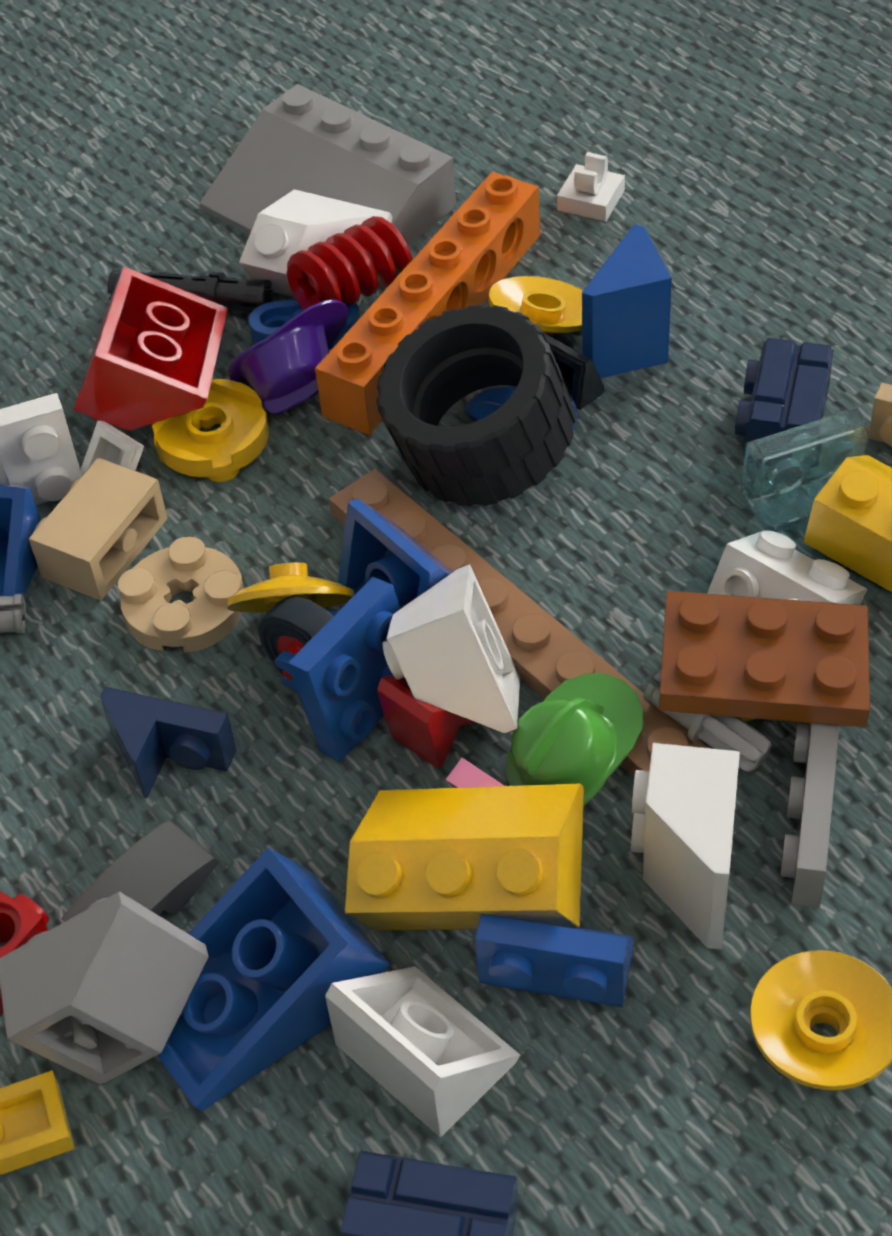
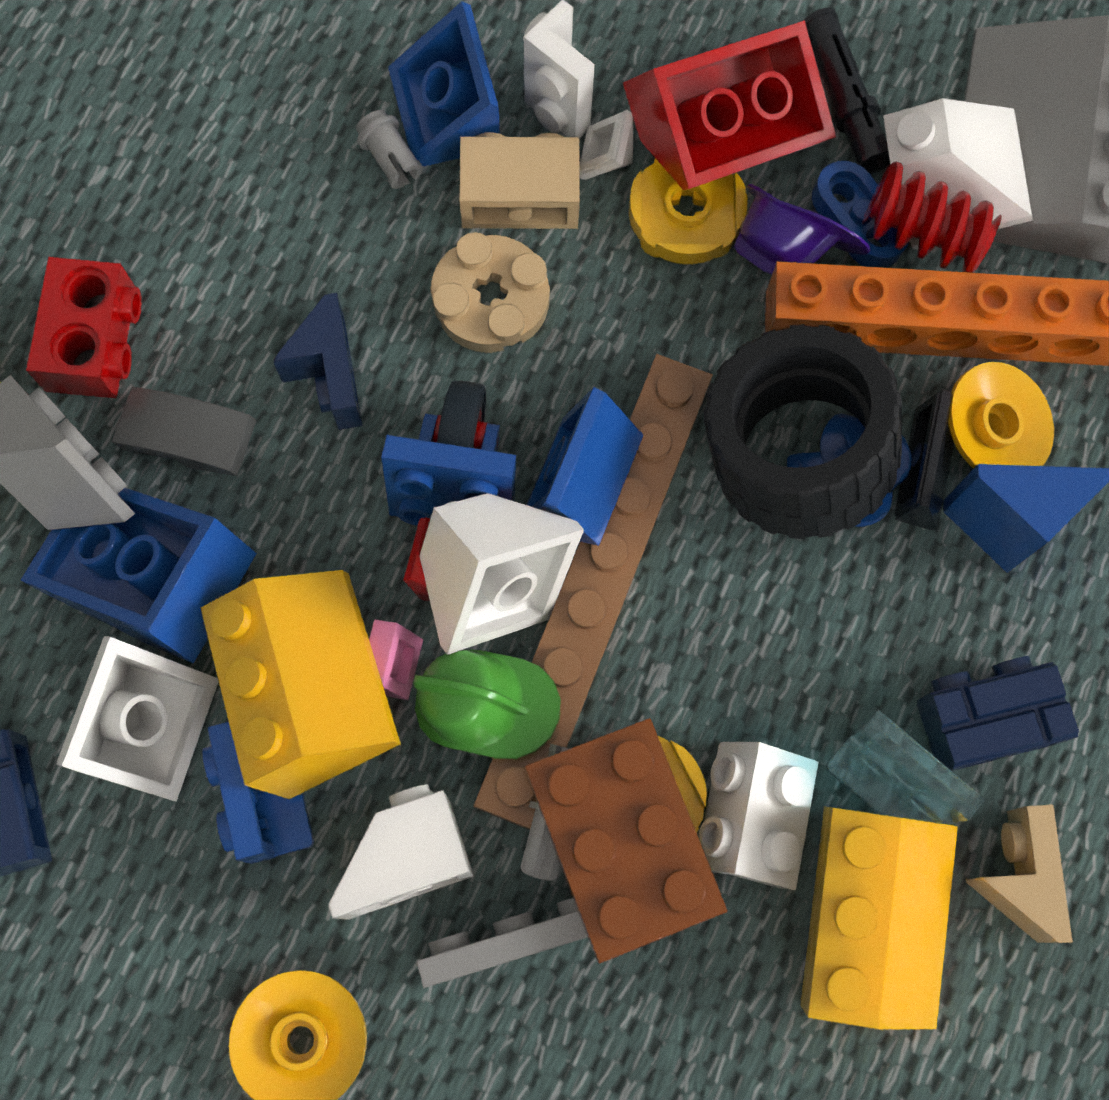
camera: 55 degrees right, 25 degrees up
(288, 581) = (508, 387): yellow dish -> none

